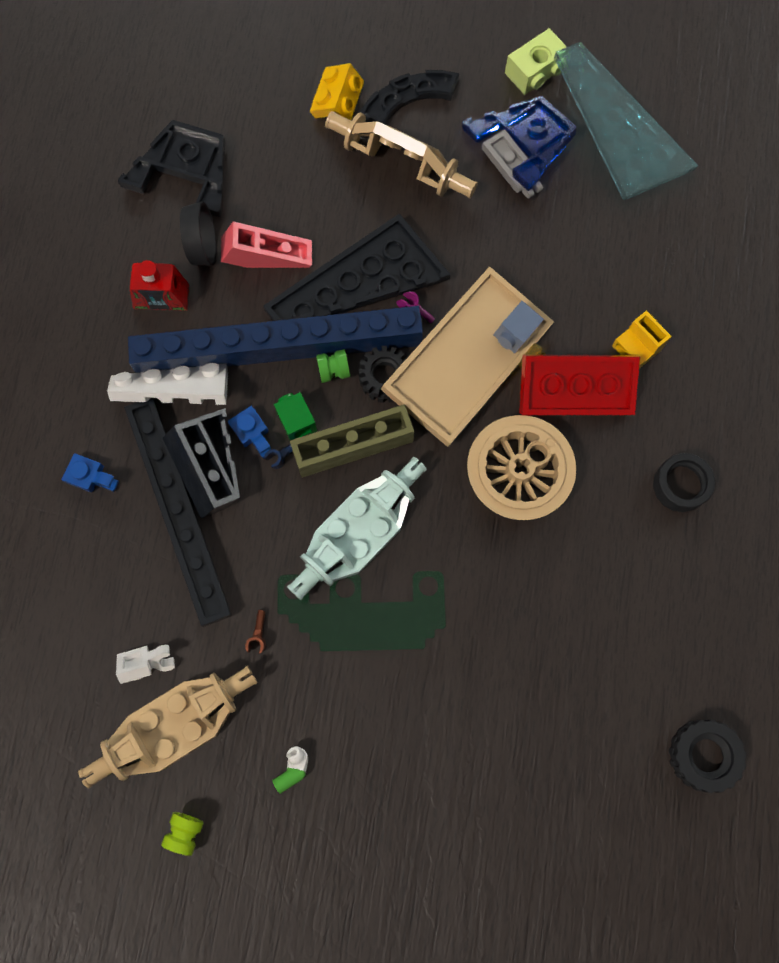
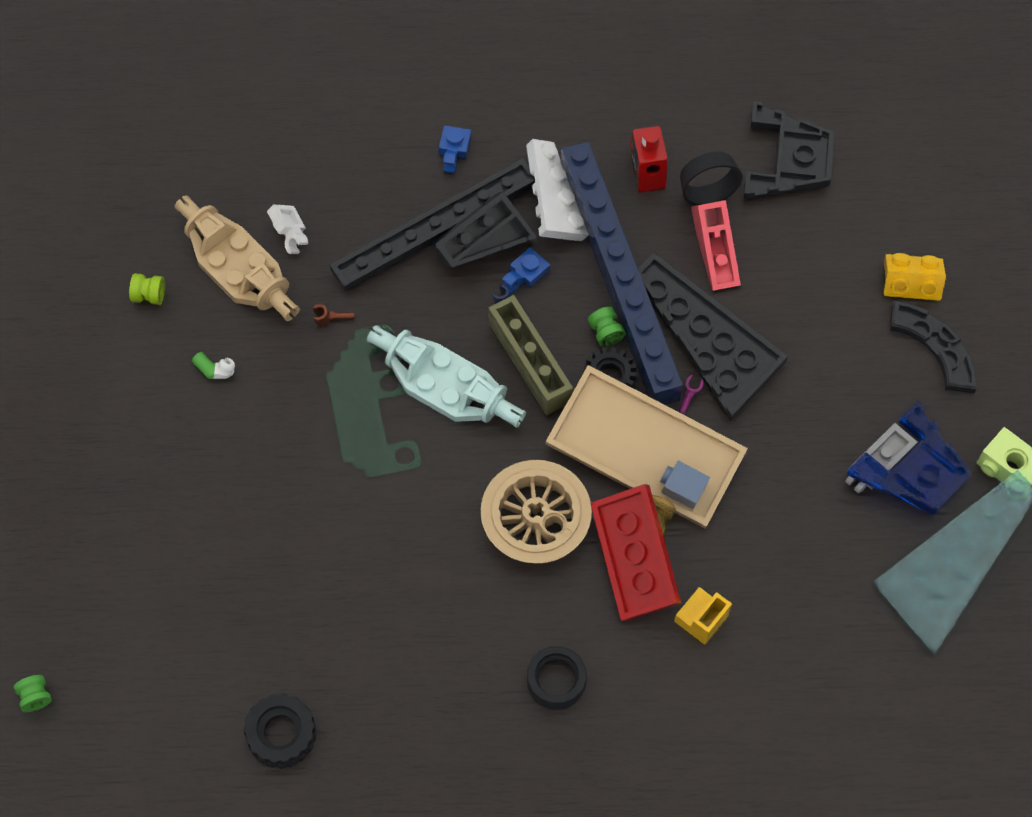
camera: 80 degrees right, 10 degrees down
(295, 416) = (546, 303): green brick -> none
(414, 148) = (864, 351): tan plate -> none

